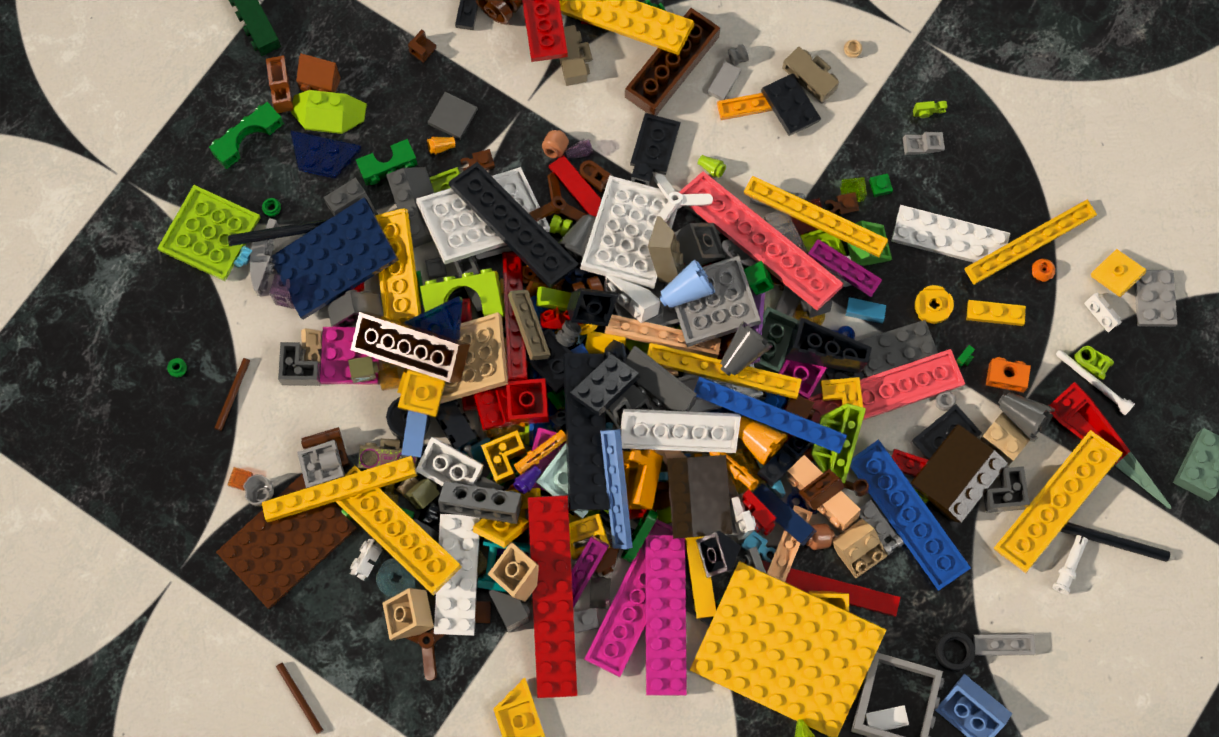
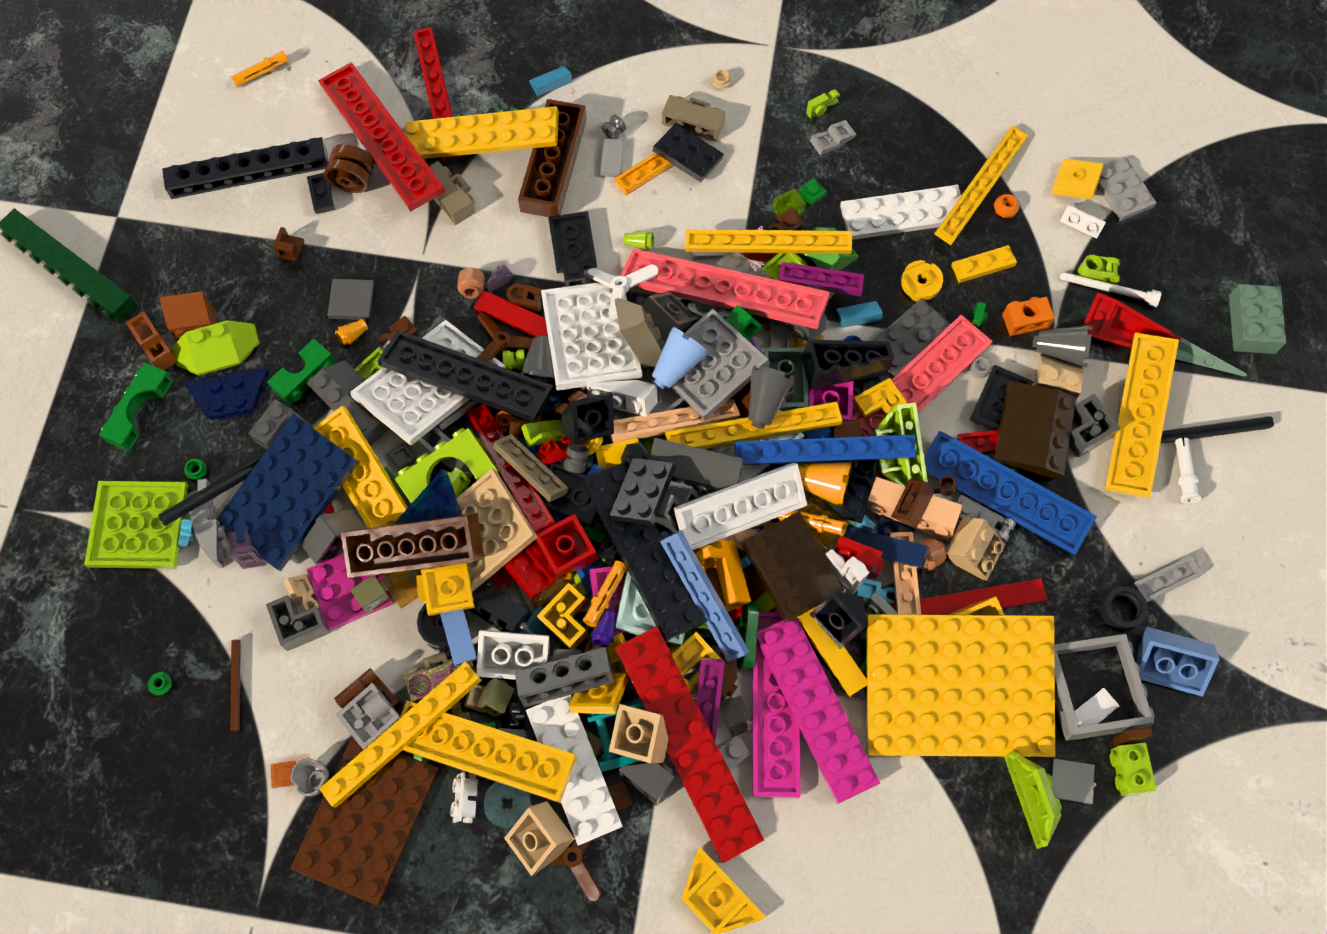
camera: 25 degrees left, 5 degrees down
(469, 310) = (459, 481): none -> lime tile

